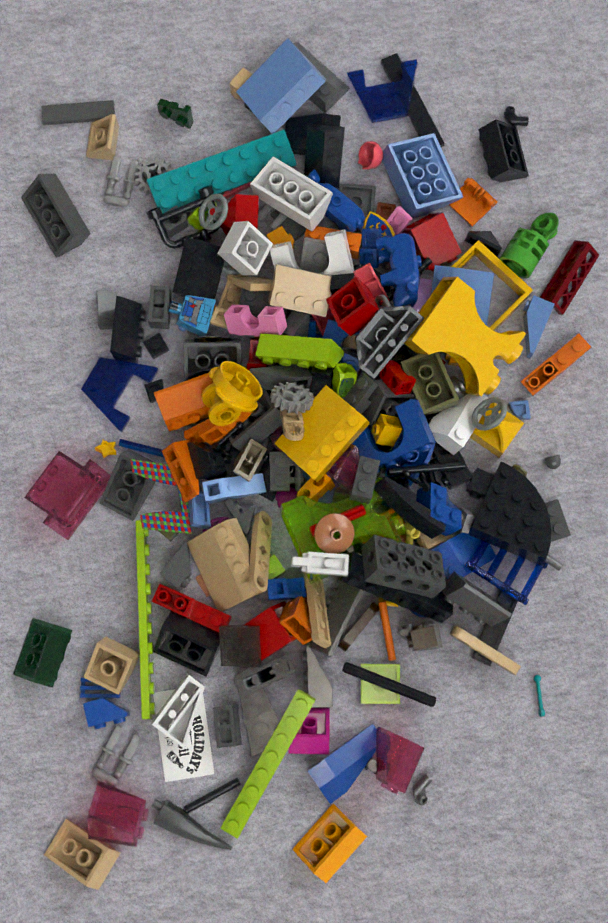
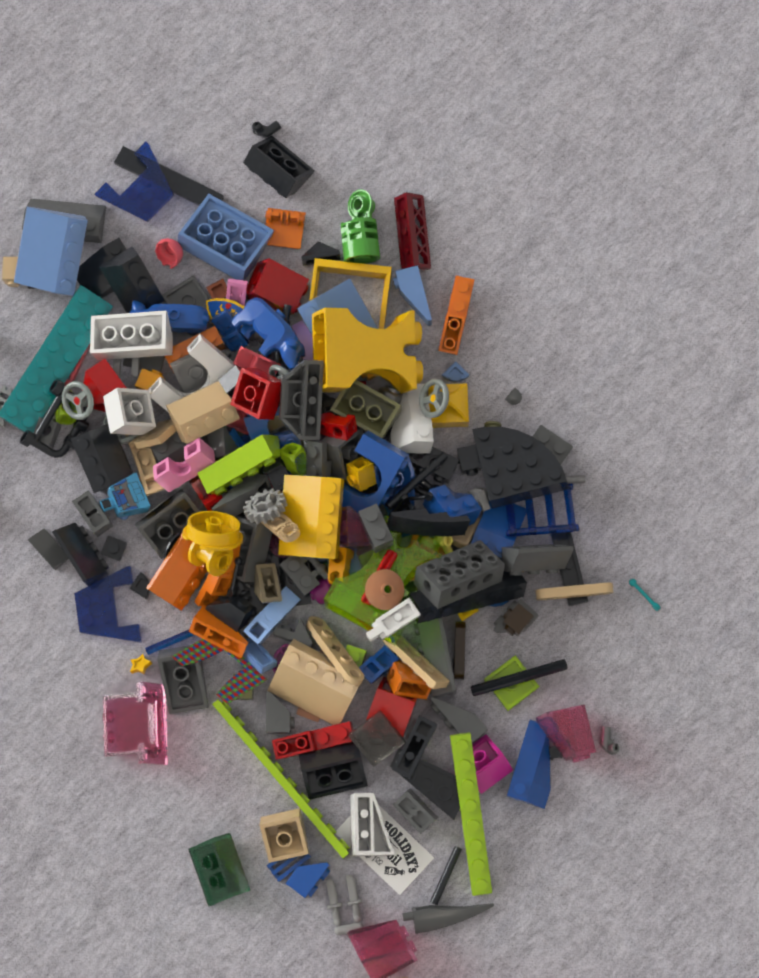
camera: 30 degrees left, 0 degrees up
(329, 843) = (567, 838): light orange slope -> none
(387, 630) = (484, 636): orange bar -> none

